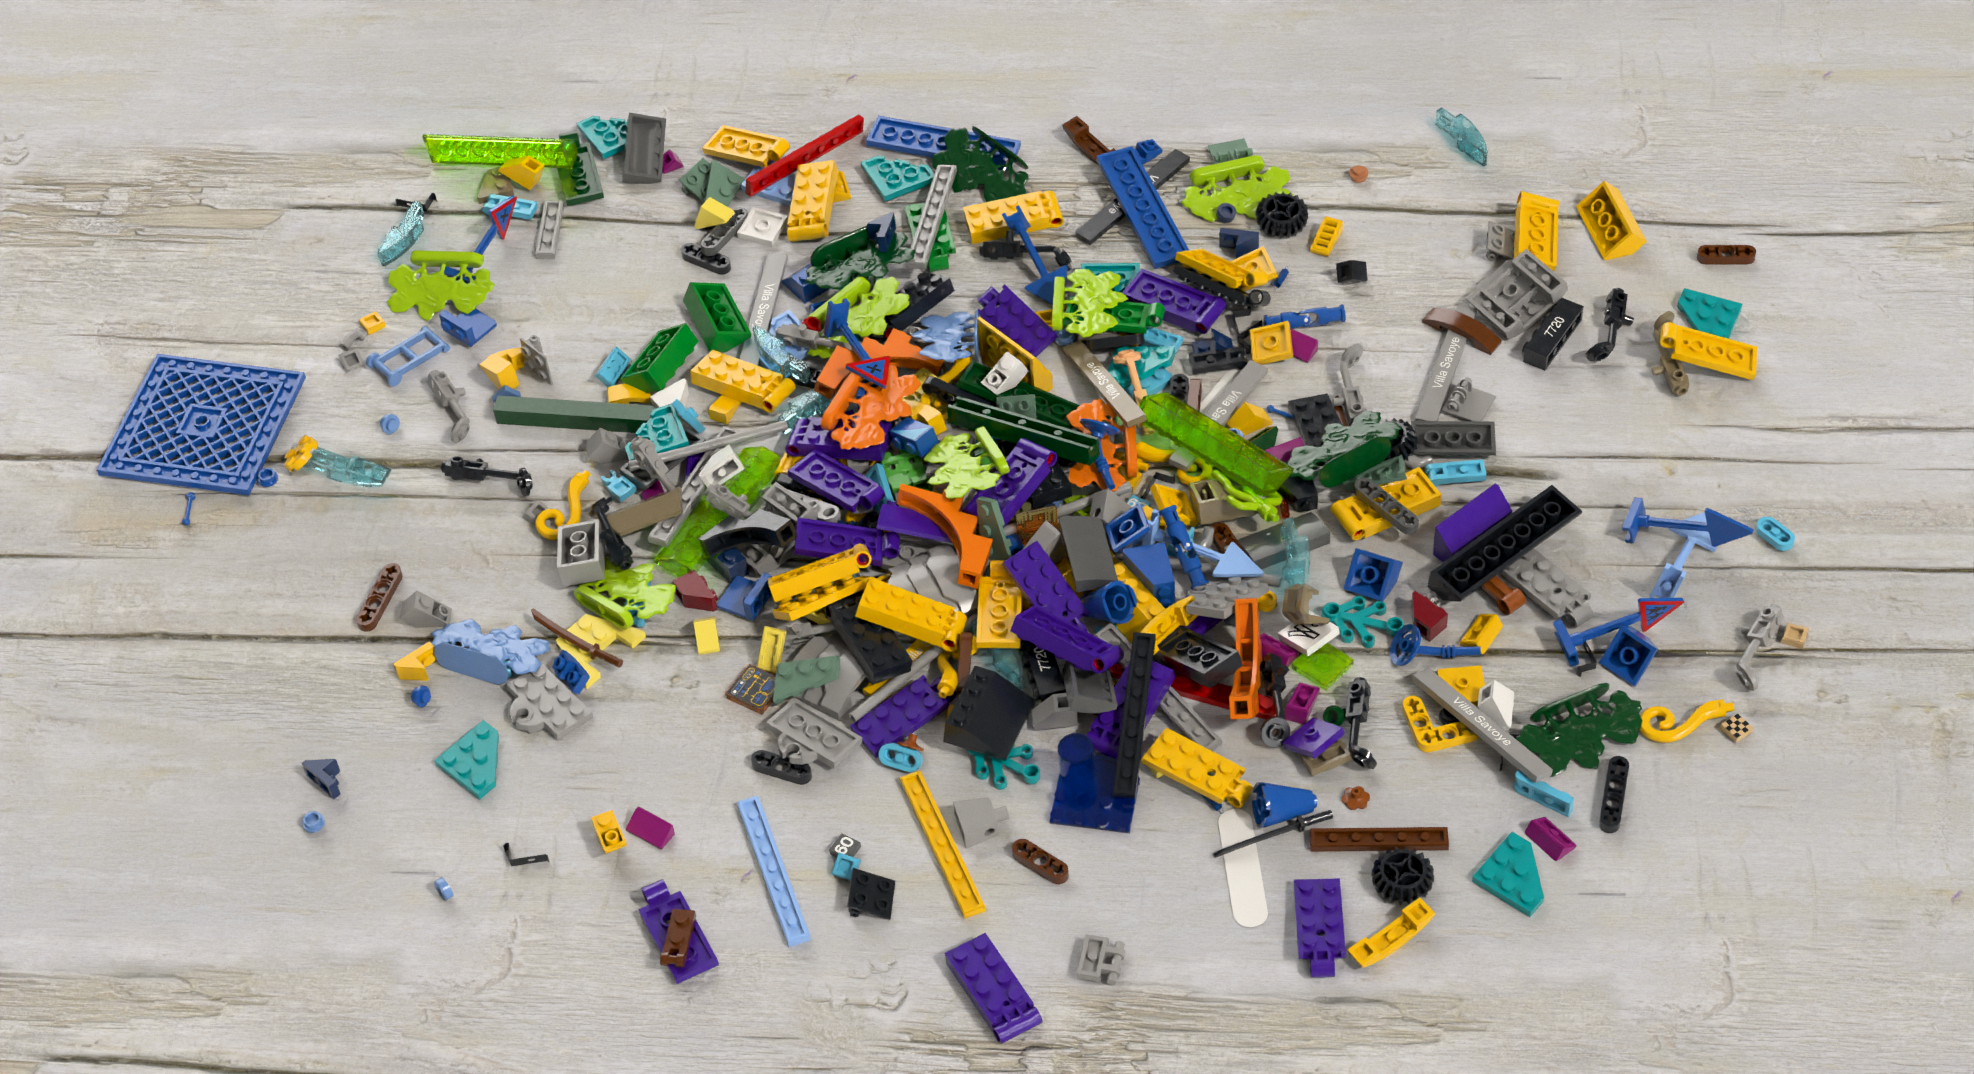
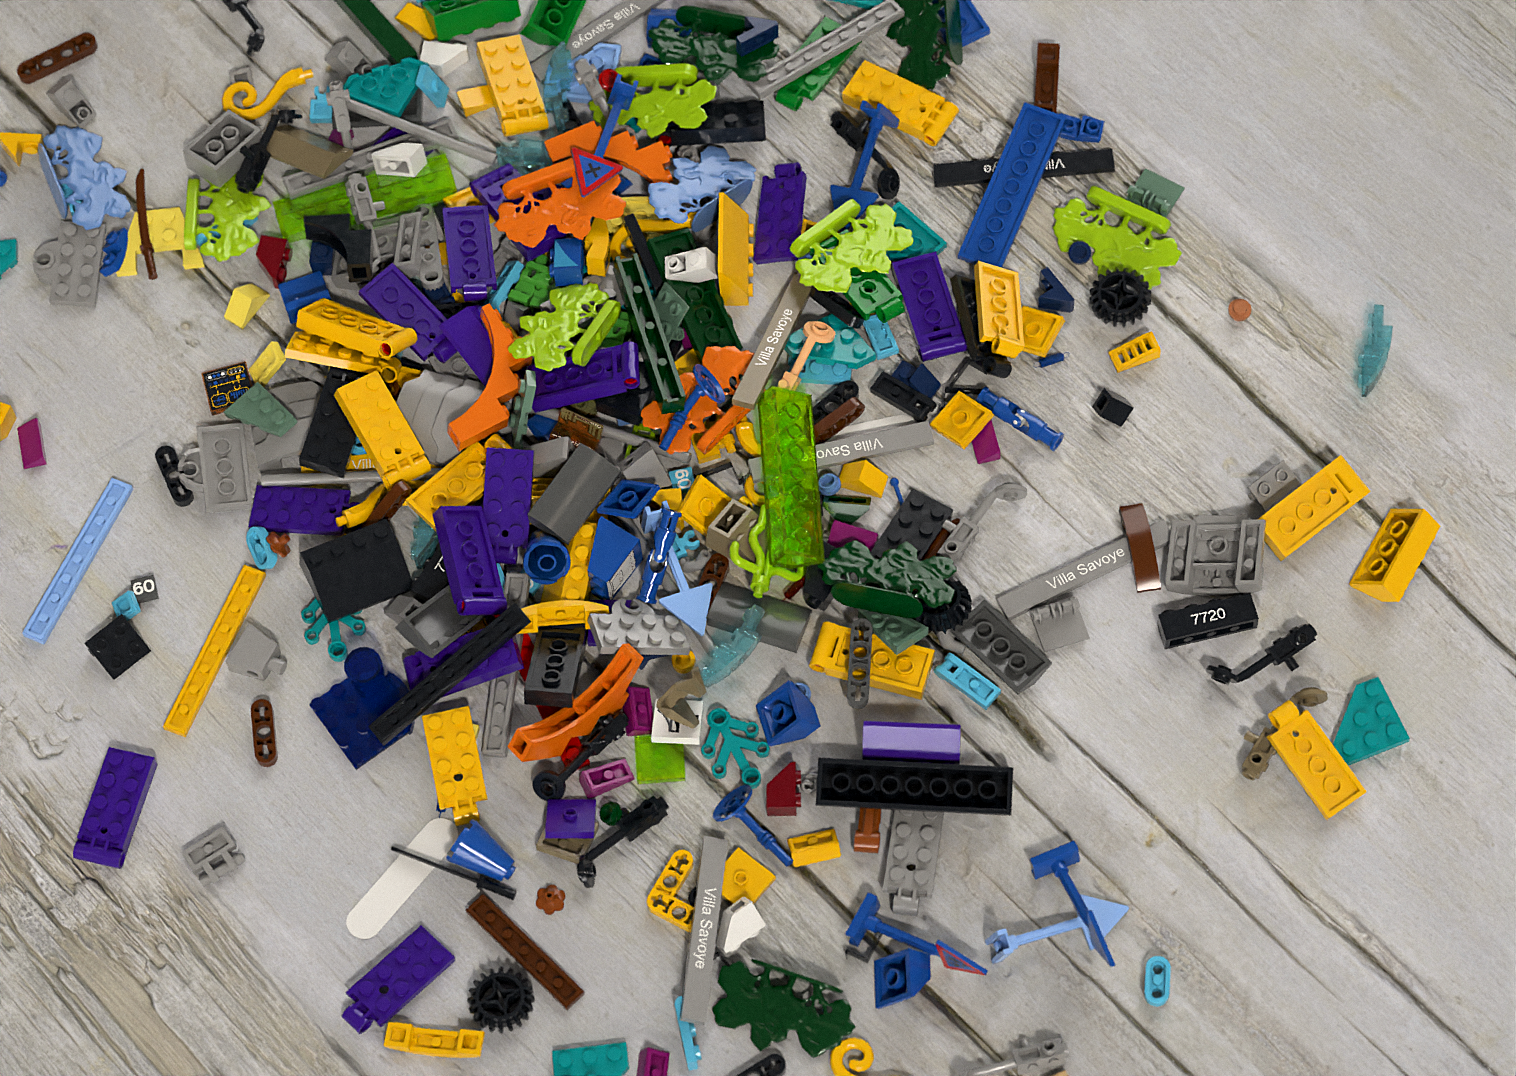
camera: 45 degrees right, 15 degrees up
(1740, 259) = (1478, 682): reddish brown beam -> none

